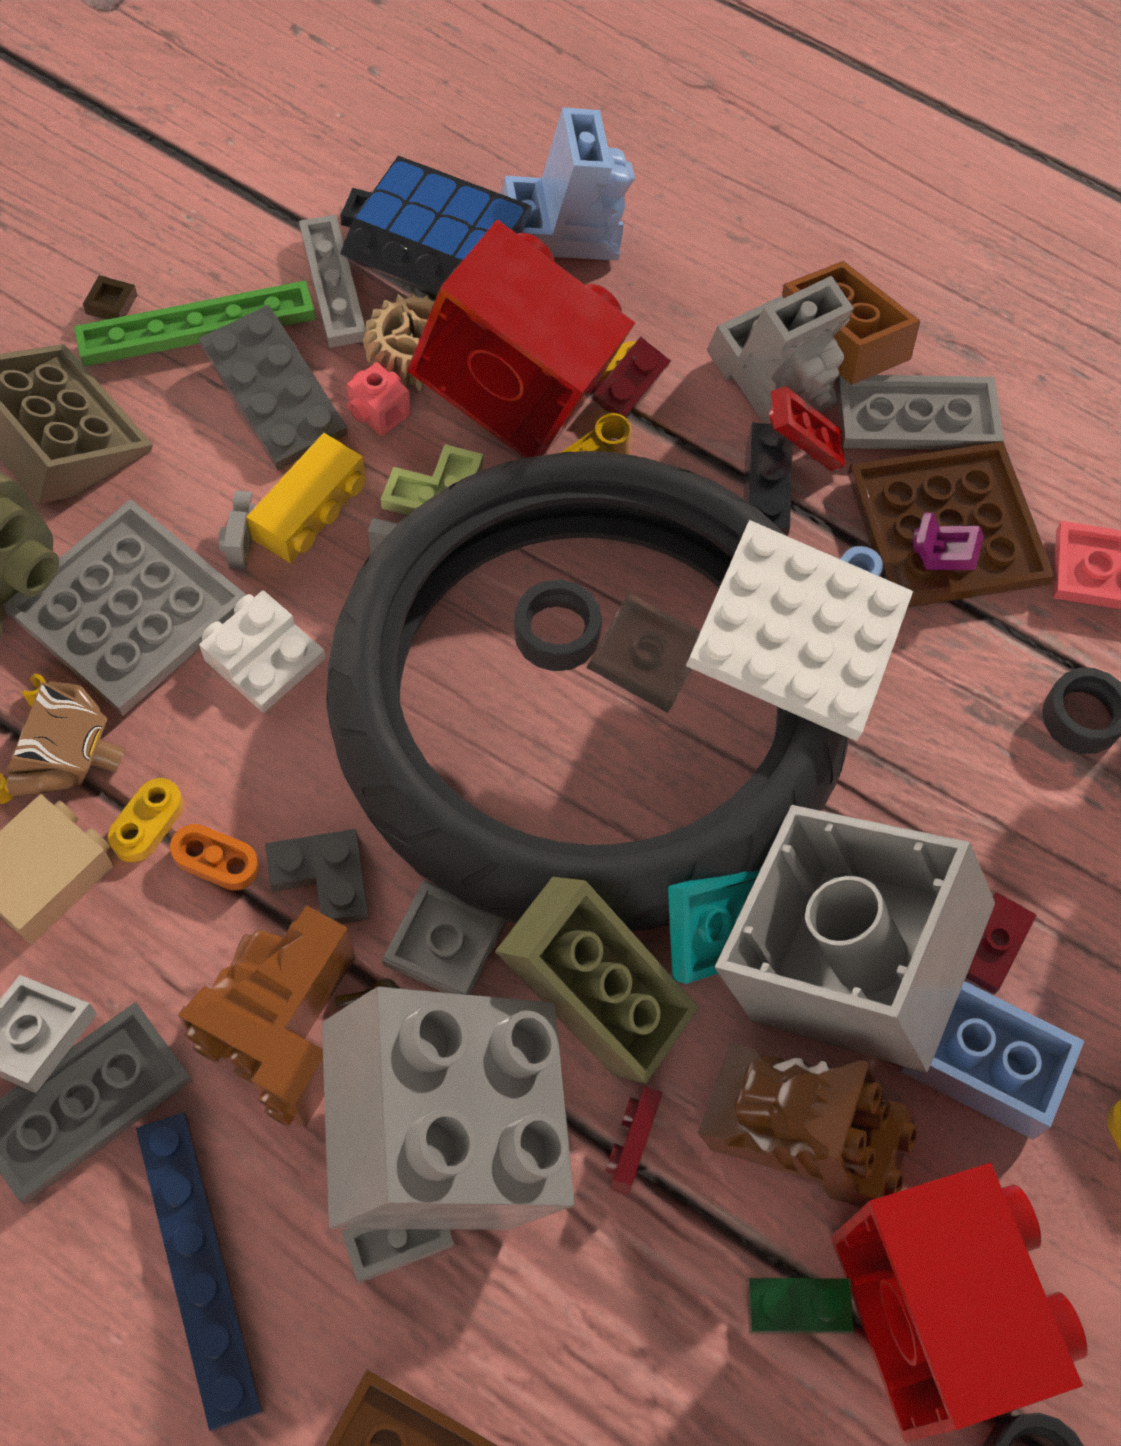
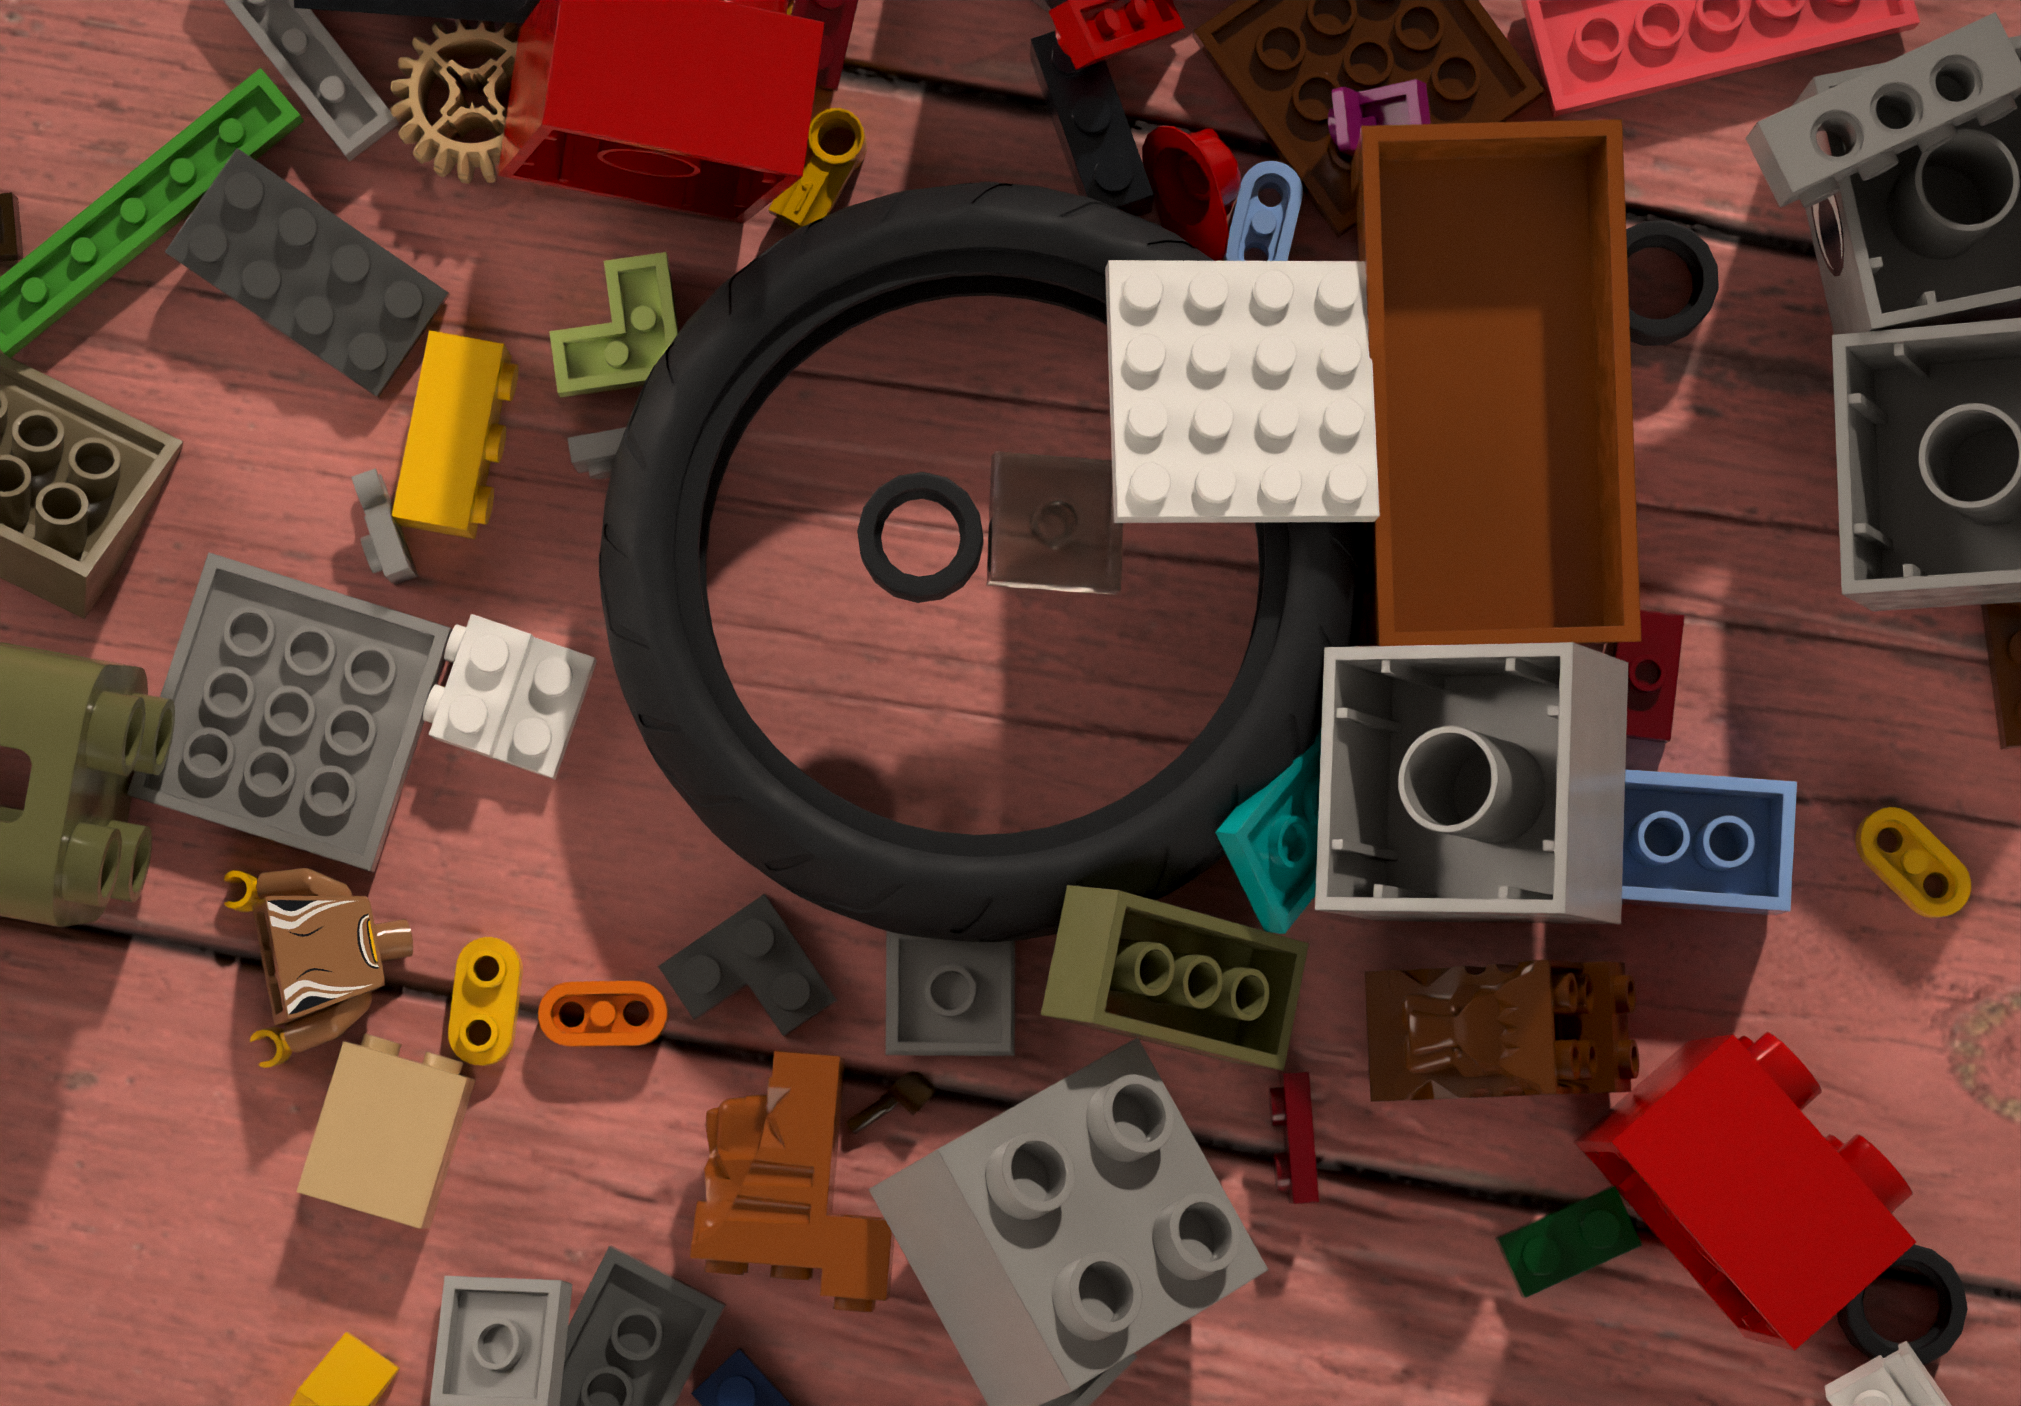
camera: 20 degrees left, 20 degrees up
(378, 398) = (483, 246): coral brick -> none
(818, 526) = (1193, 185): none -> red piece
(974, 693) = (1499, 383): none -> dark orange piece

